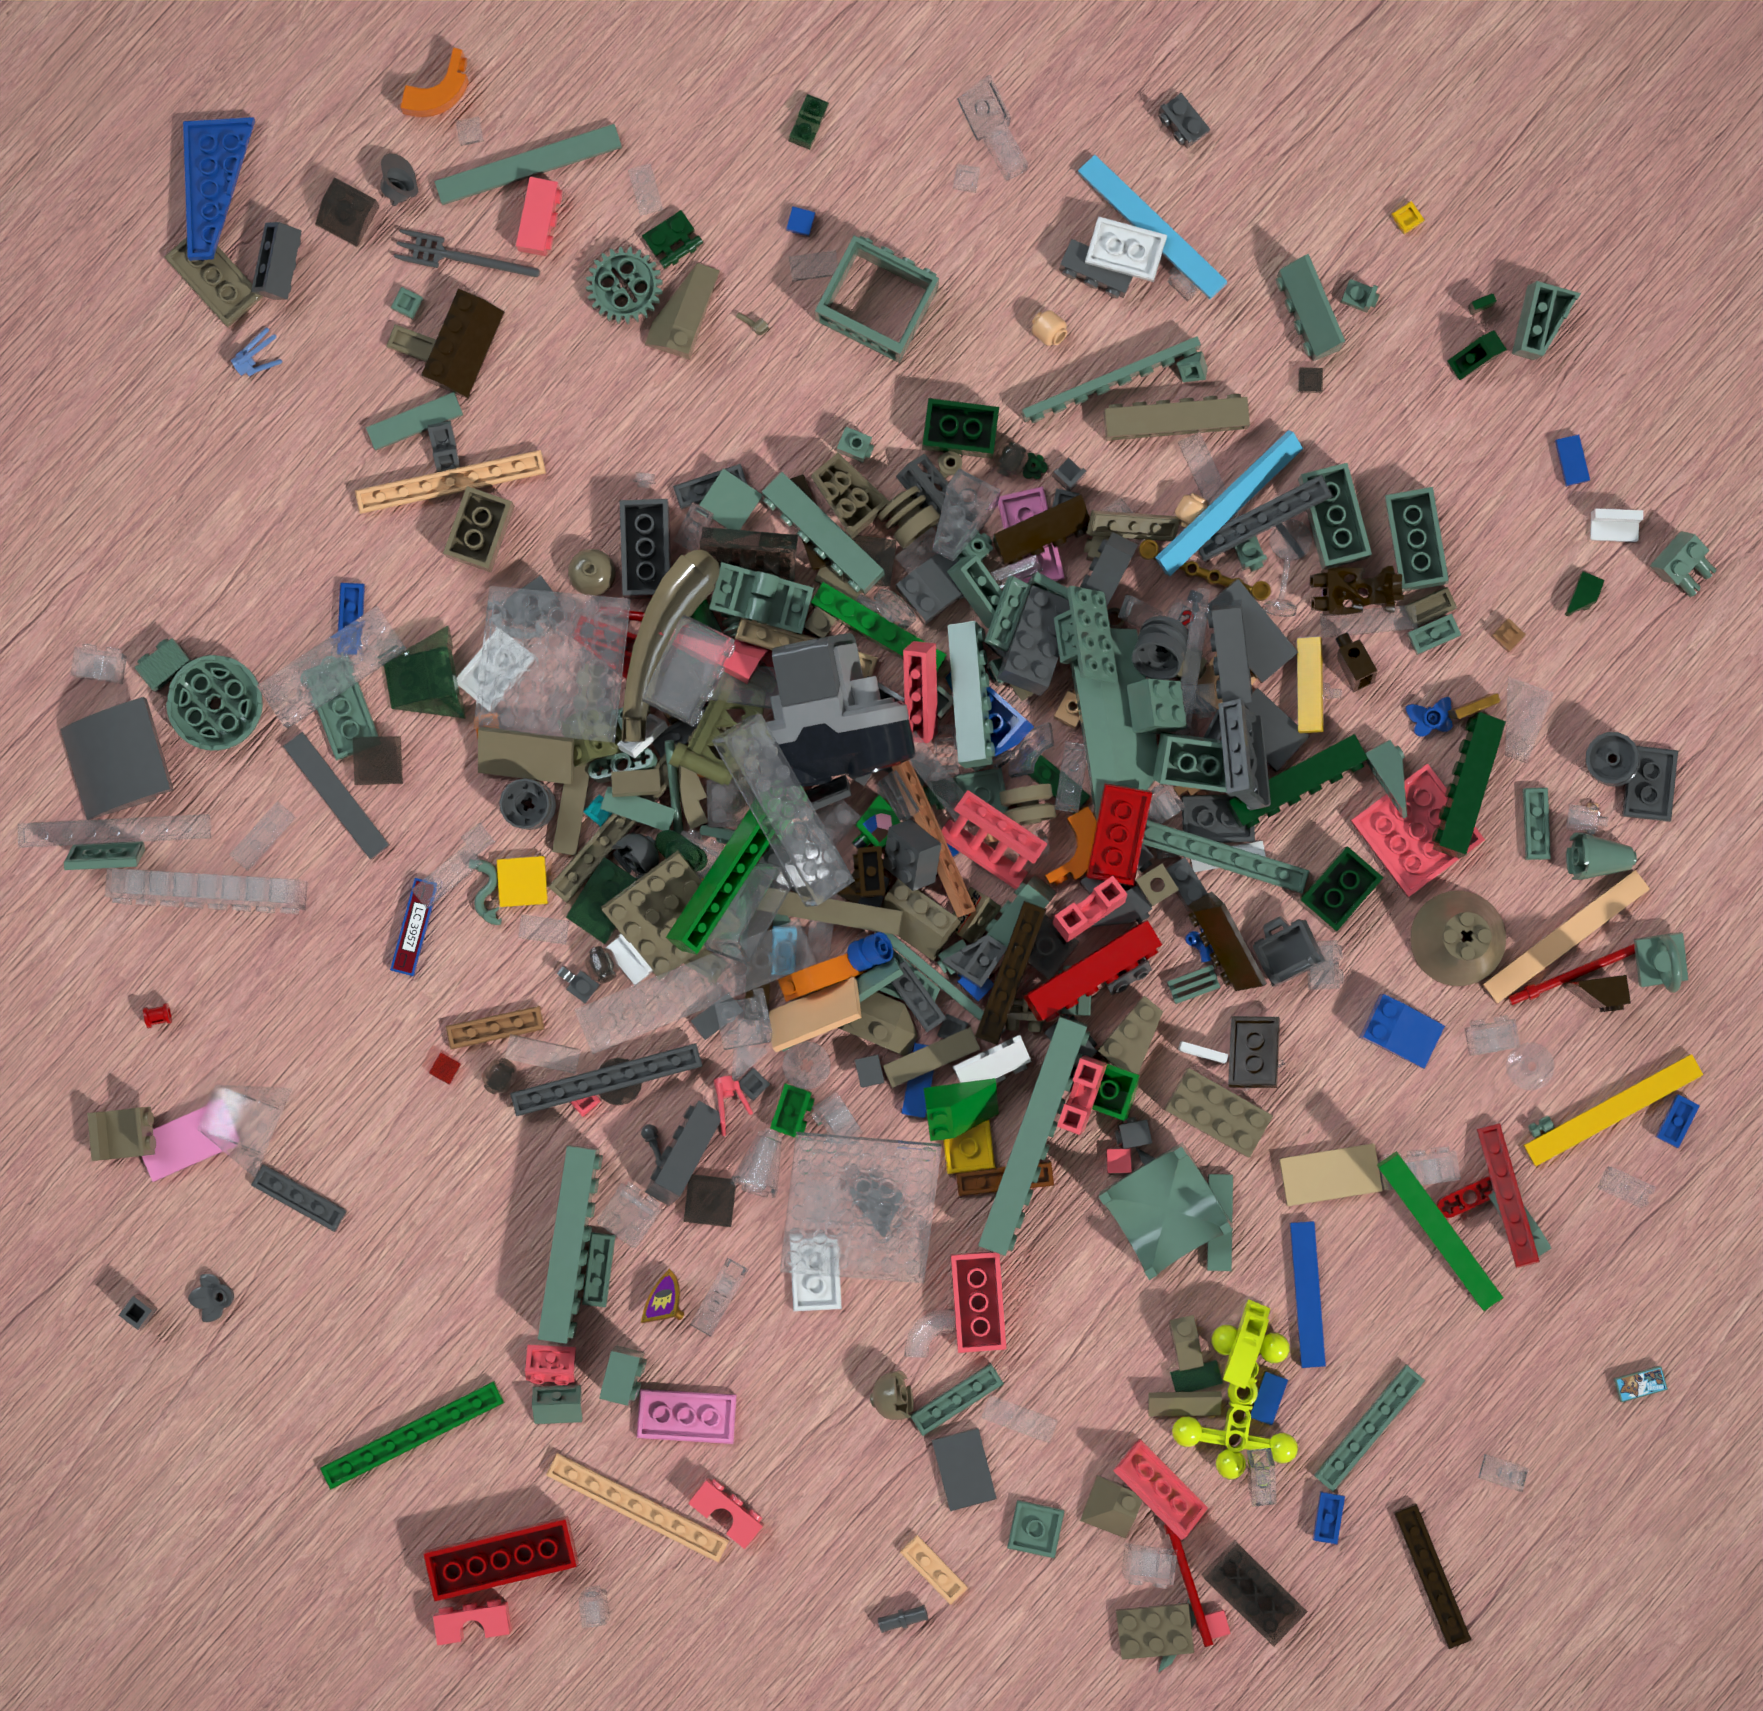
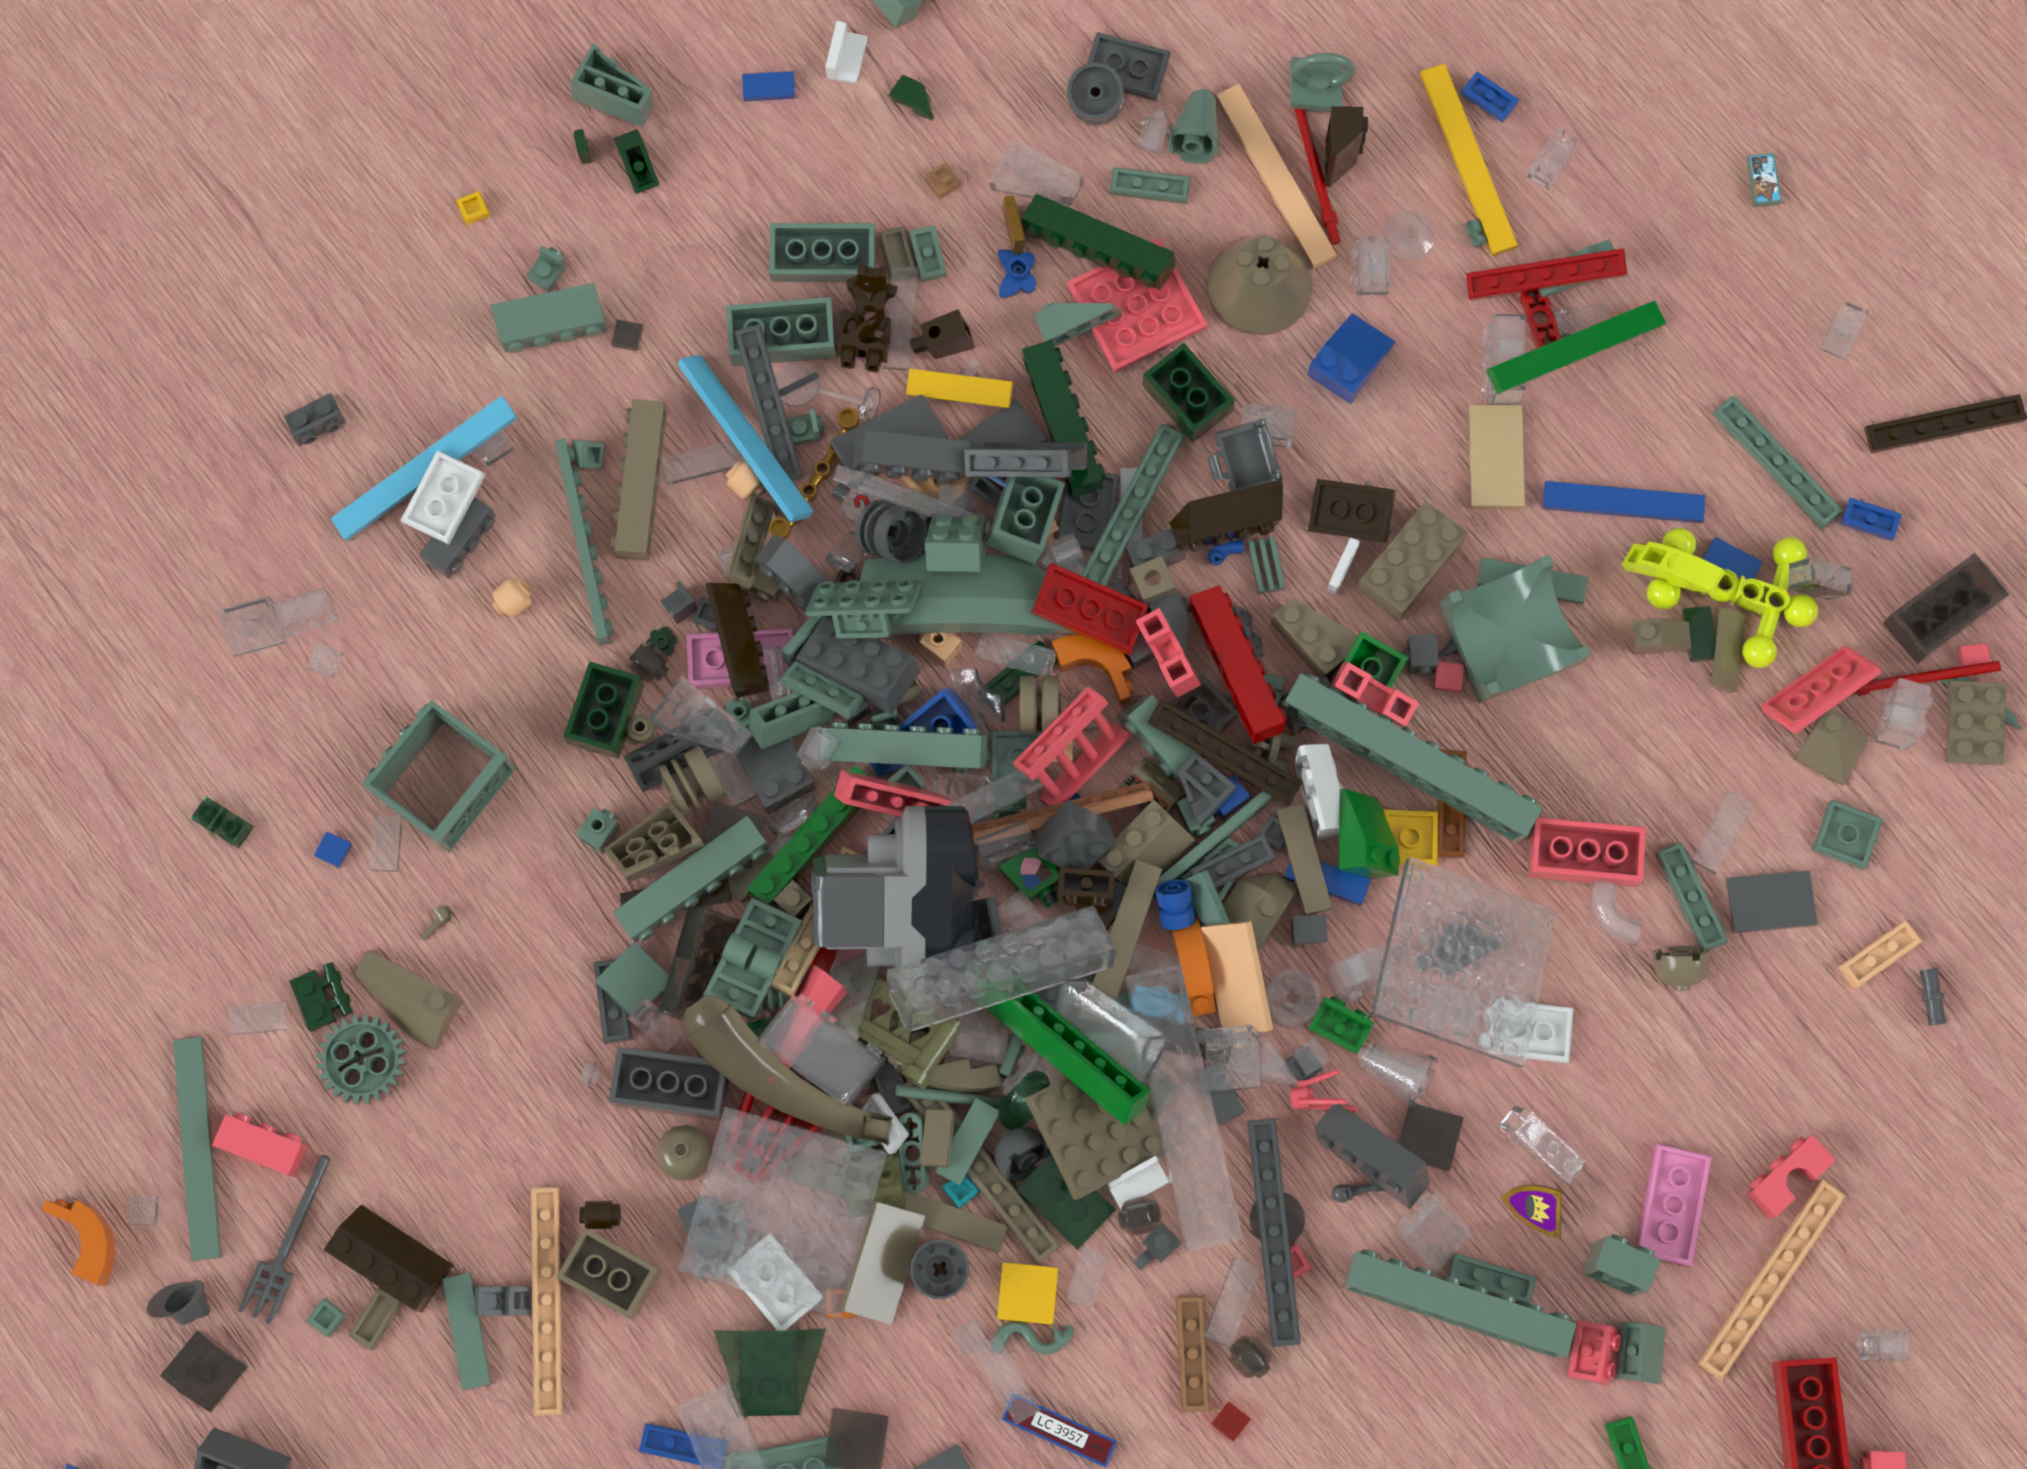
camera: 75 degrees left, 10 degrees down
(527, 512) = (600, 1215): none -> dark brown brick
(760, 1089) = (1311, 1057): none -> clear tile
(954, 620) = (818, 748): none -> clear brick
(1474, 1233) = (1579, 318): none -> clear tile

